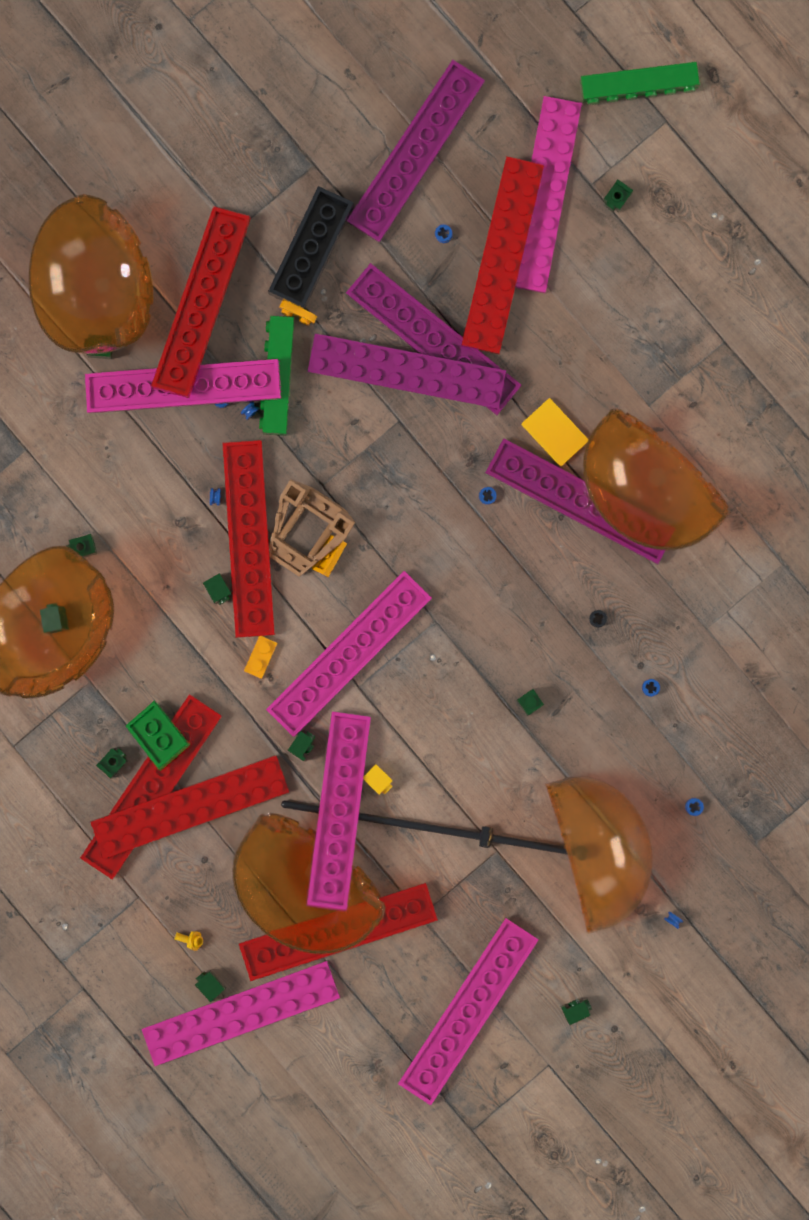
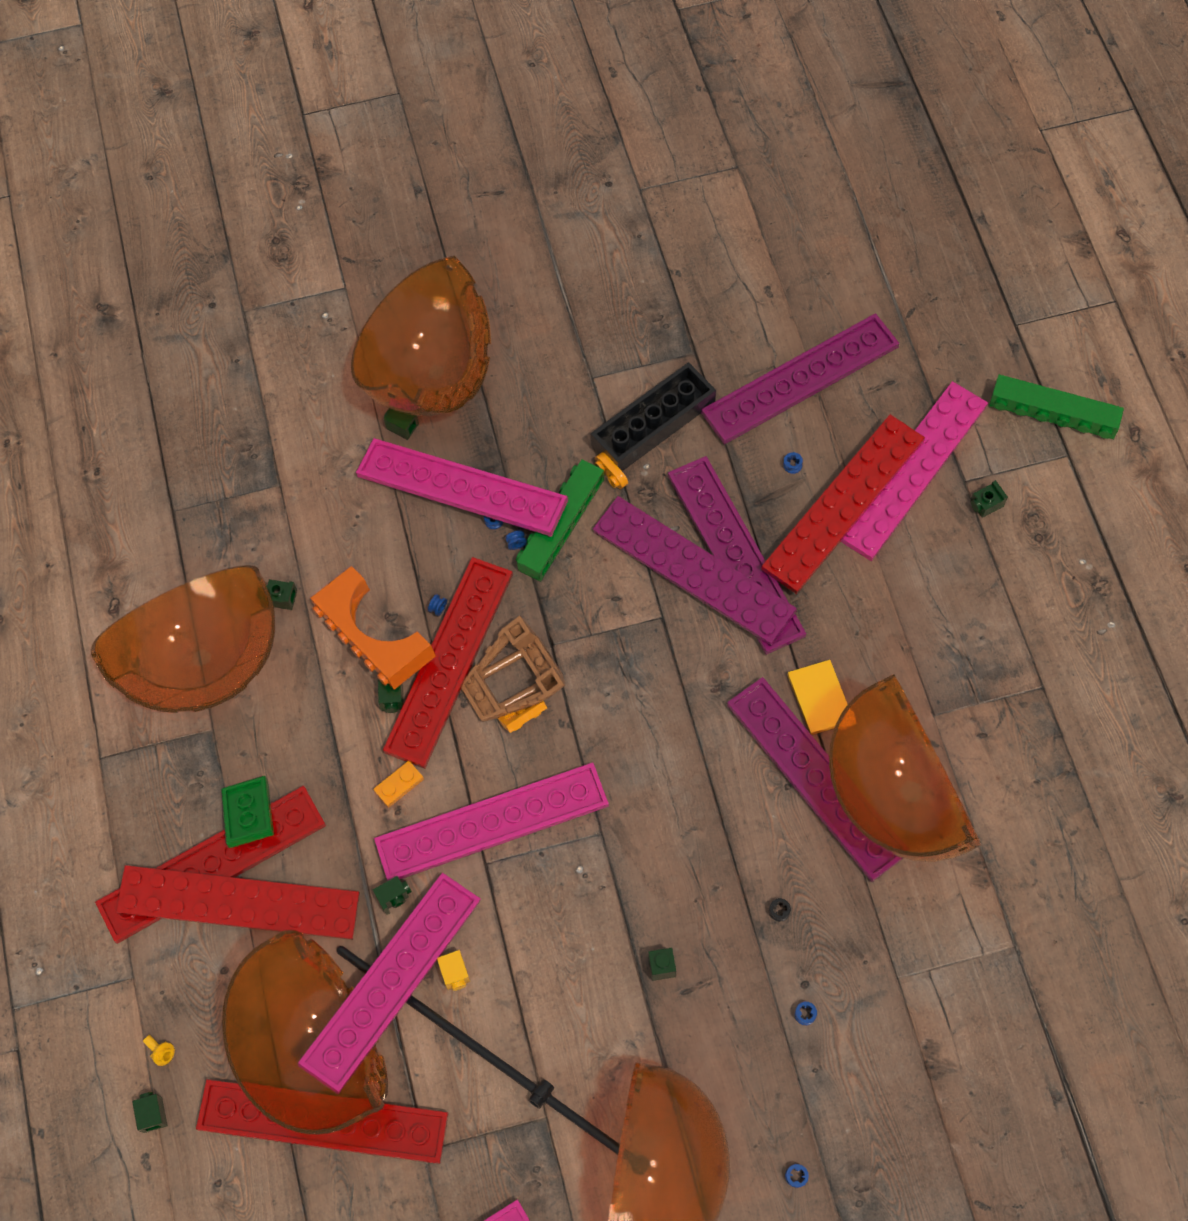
camera: 30 degrees right, 20 degrees down
(54, 618) = (210, 646): dark green brick -> none
(108, 769) = (193, 823): dark green brick -> none
(136, 534) = (390, 659): none -> orange arch
(201, 302) = (518, 419): red plate -> none
(240, 1013) = (167, 1163): dark pink plate -> none
(493, 494) = (720, 721): blue bush -> none

